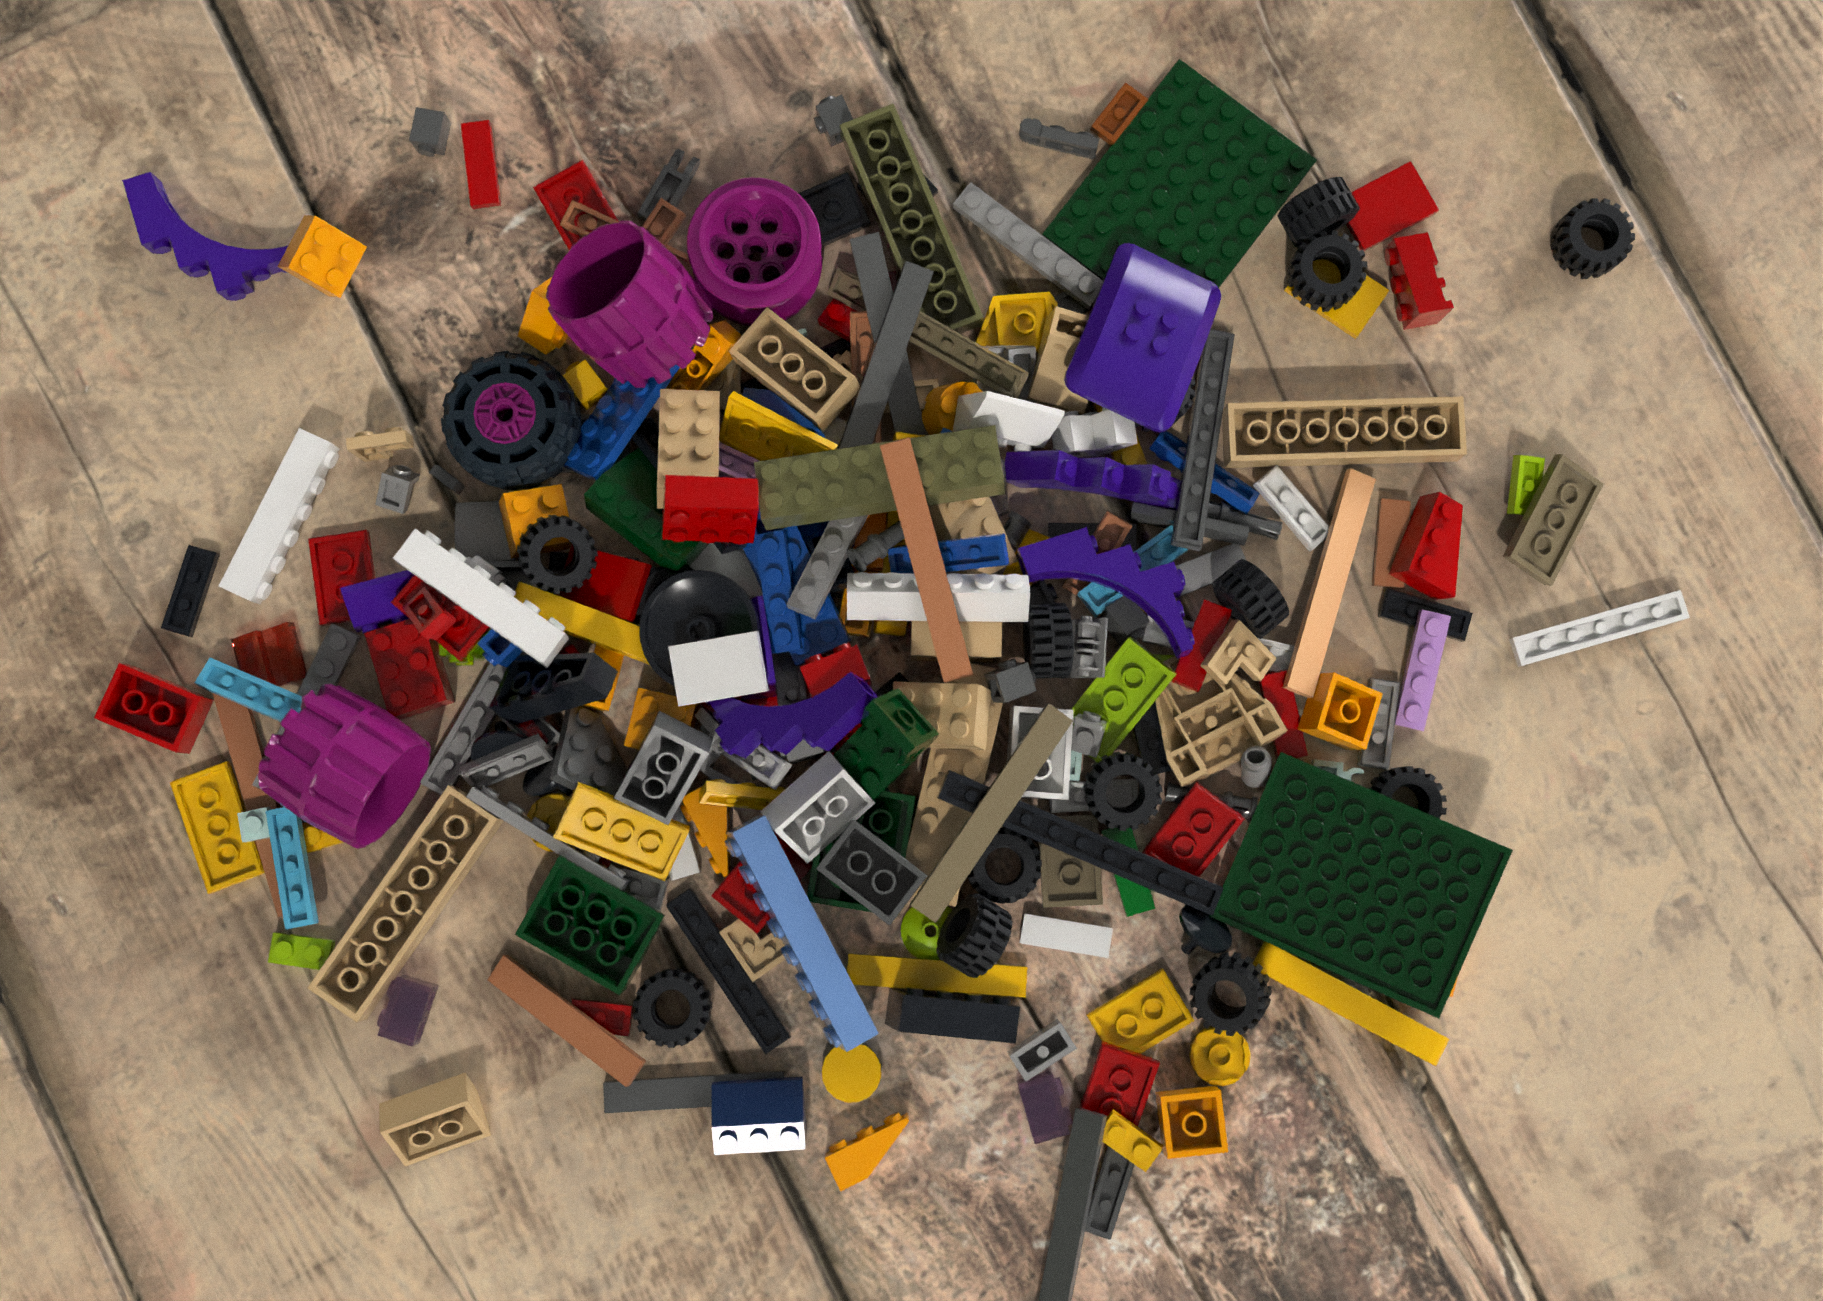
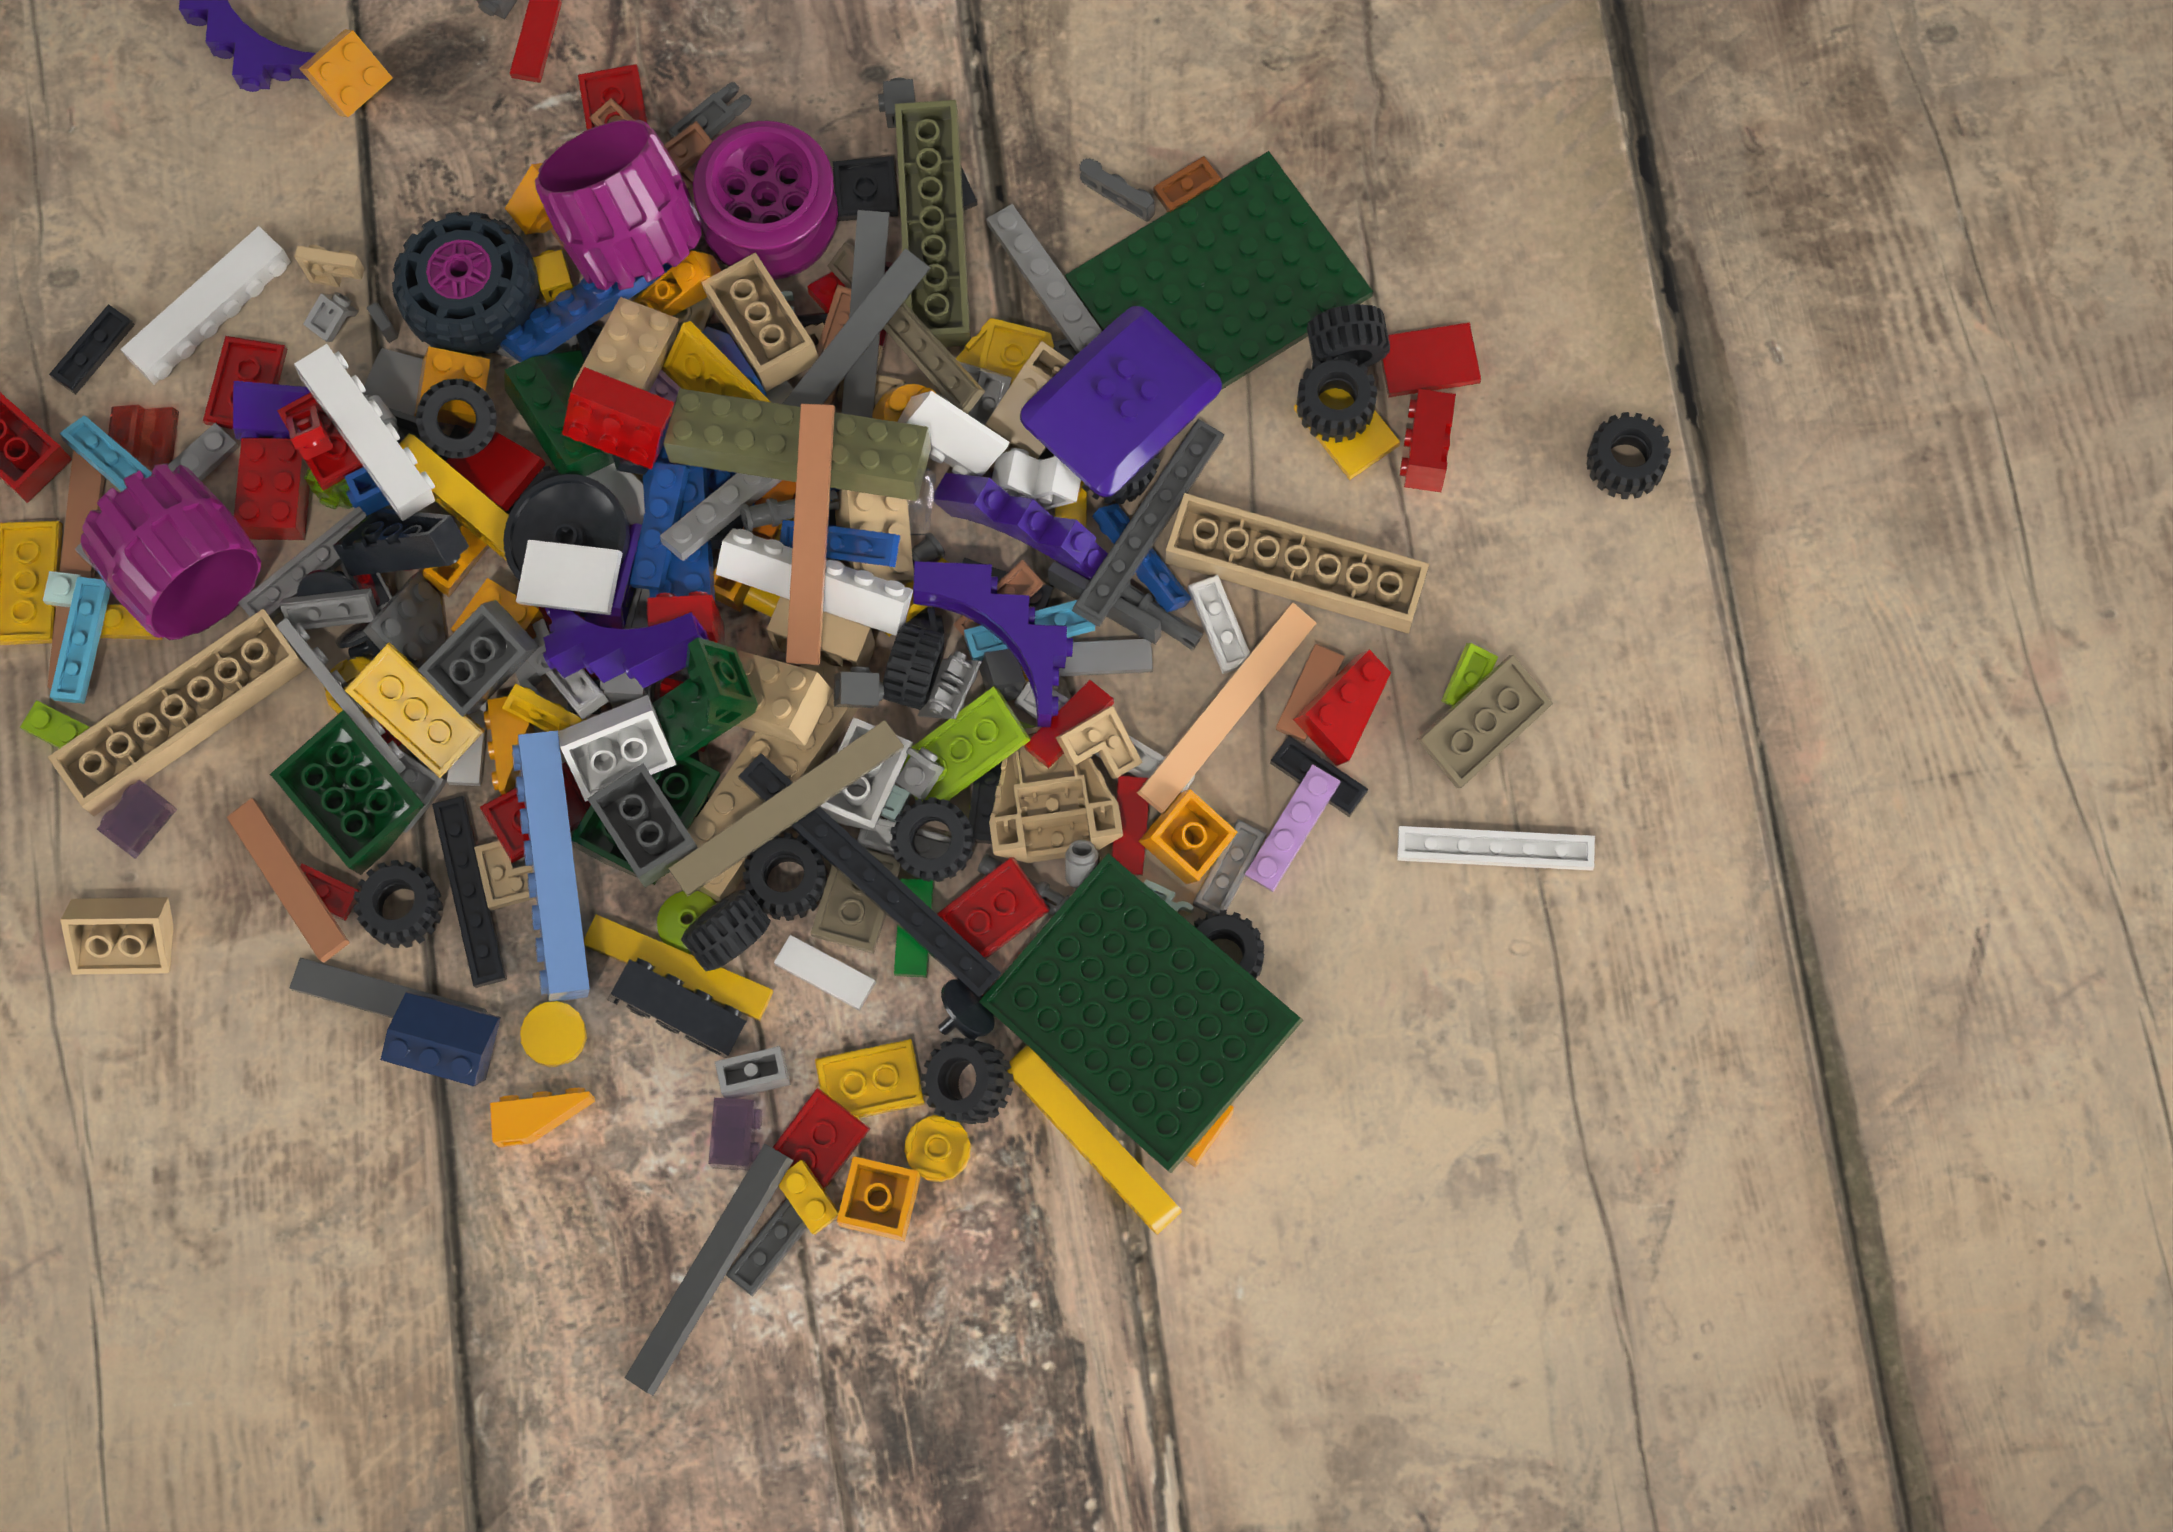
camera: 25 degrees right, 10 degrees down
(1251, 597) = (1136, 692): black tyre -> none

